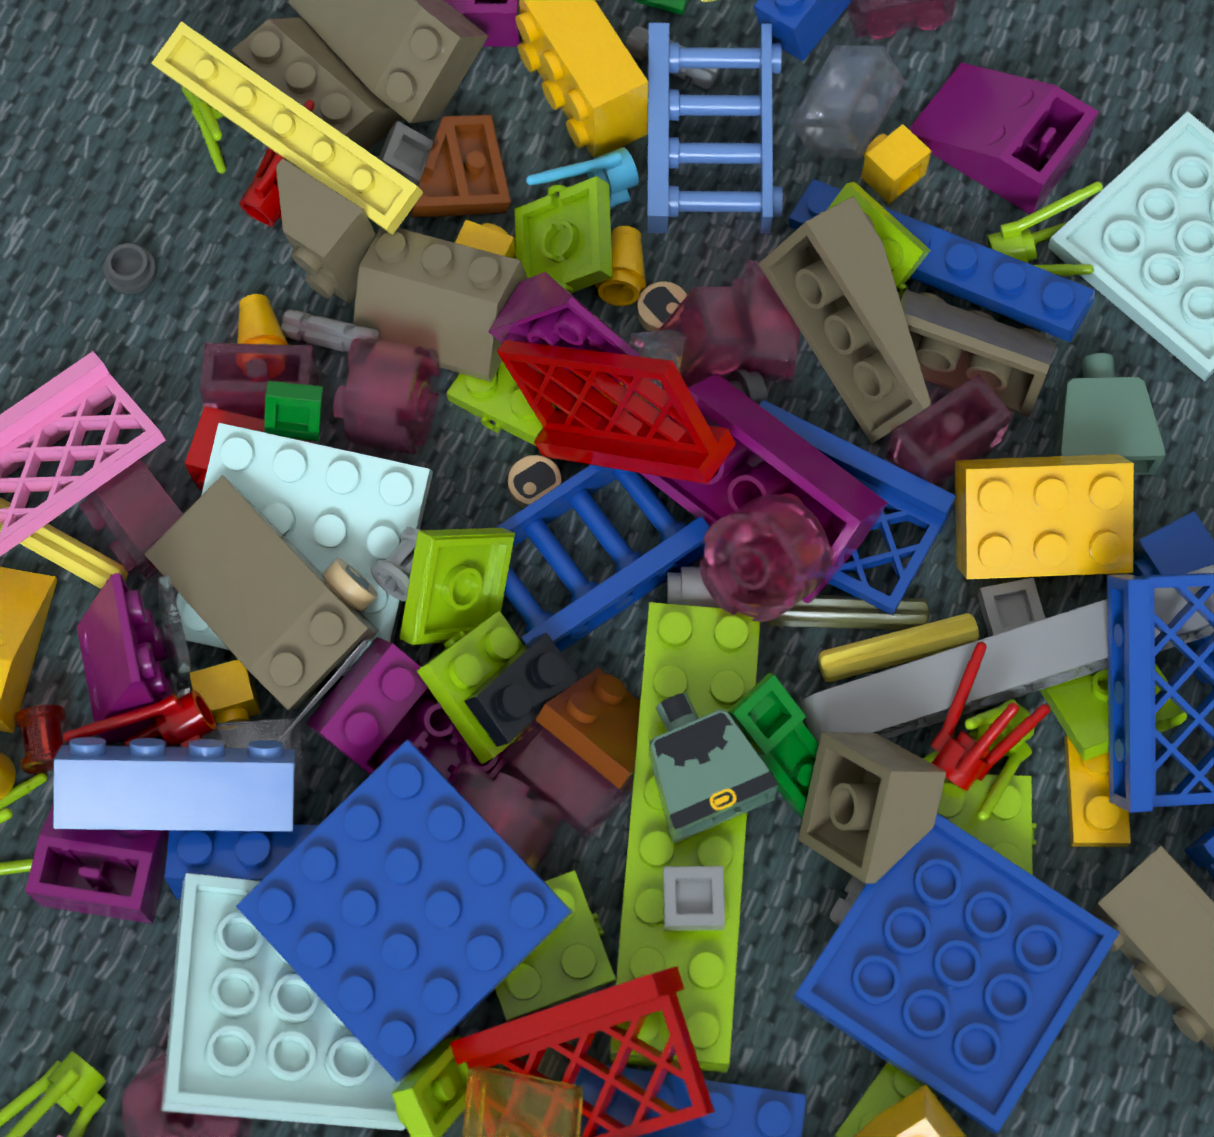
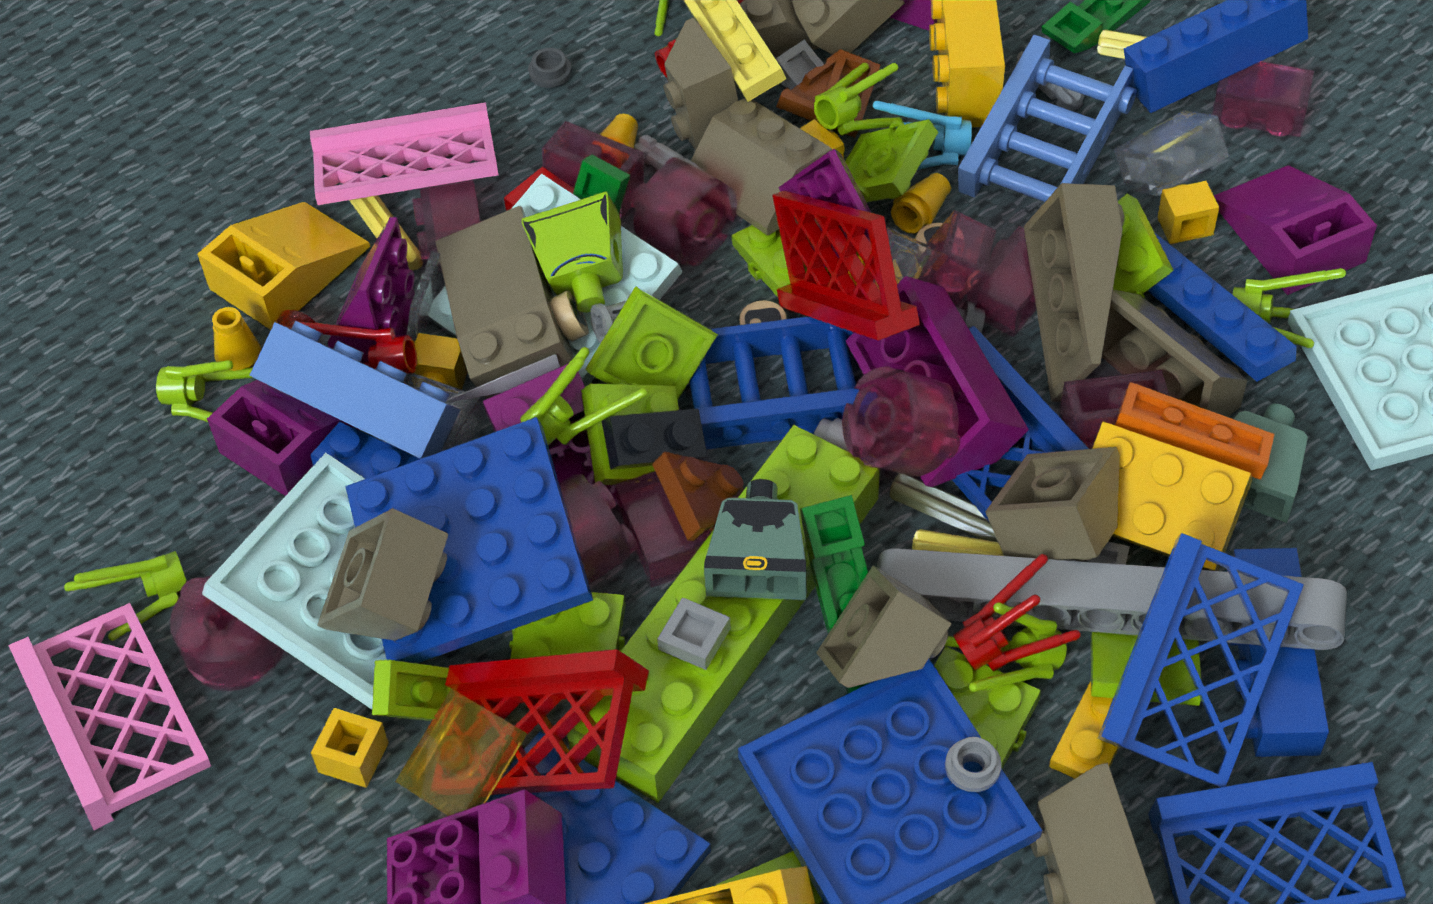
camera: 30 degrees right, 15 degrees down
(321, 506) = (579, 247): none -> lime torso
(352, 1003) = (385, 577): none -> dark tan slope
(411, 715) = (555, 412): none -> lime plant
(489, 196) = (841, 104): none -> lime plant
(962, 576) = (1058, 505): none -> dark tan slope
(1041, 890) = (974, 750): none -> light grey plate
(1048, 432) = (1195, 429): none -> orange plate

